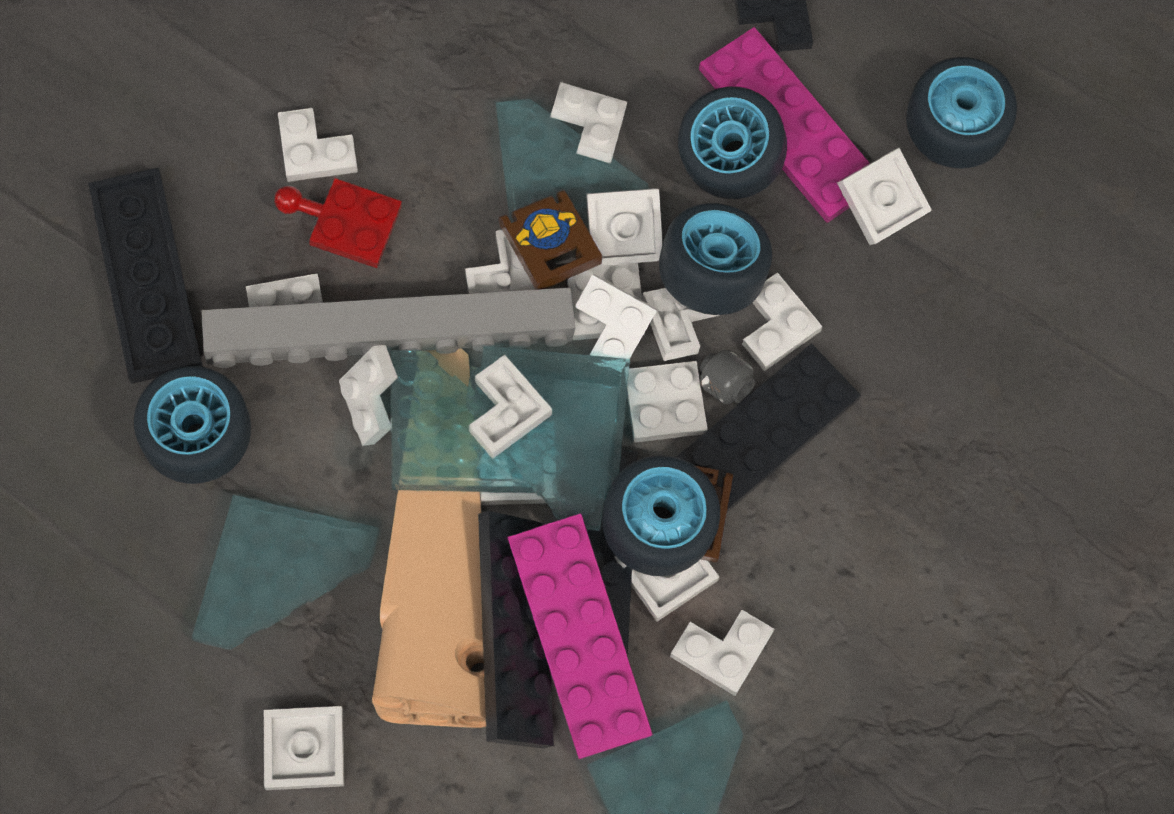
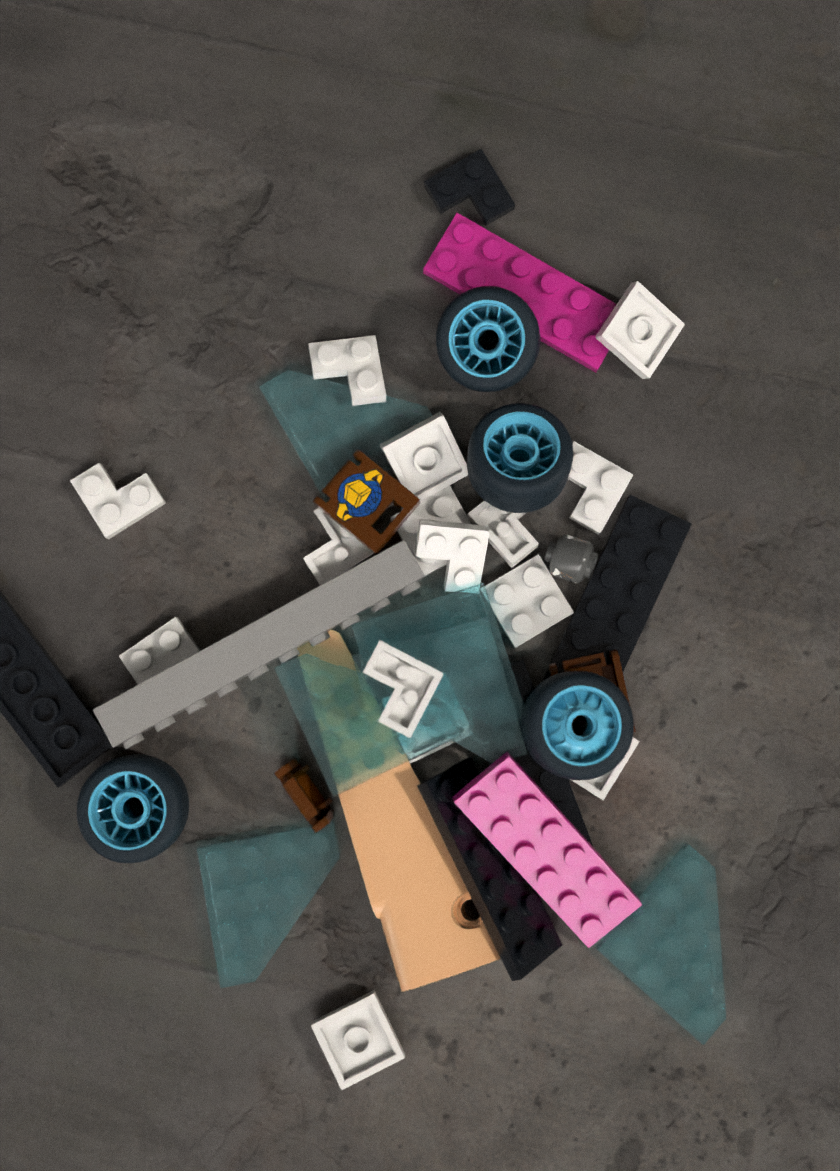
camera: 20 degrees left, 15 degrees up
(350, 221) = (182, 554): red plate -> none
(362, 392) = (264, 707): white plate -> none
(364, 476) = (305, 794): none -> reddish brown container
(728, 660) = (674, 808): white plate -> none
(961, 112) = (669, 243): wheel -> none

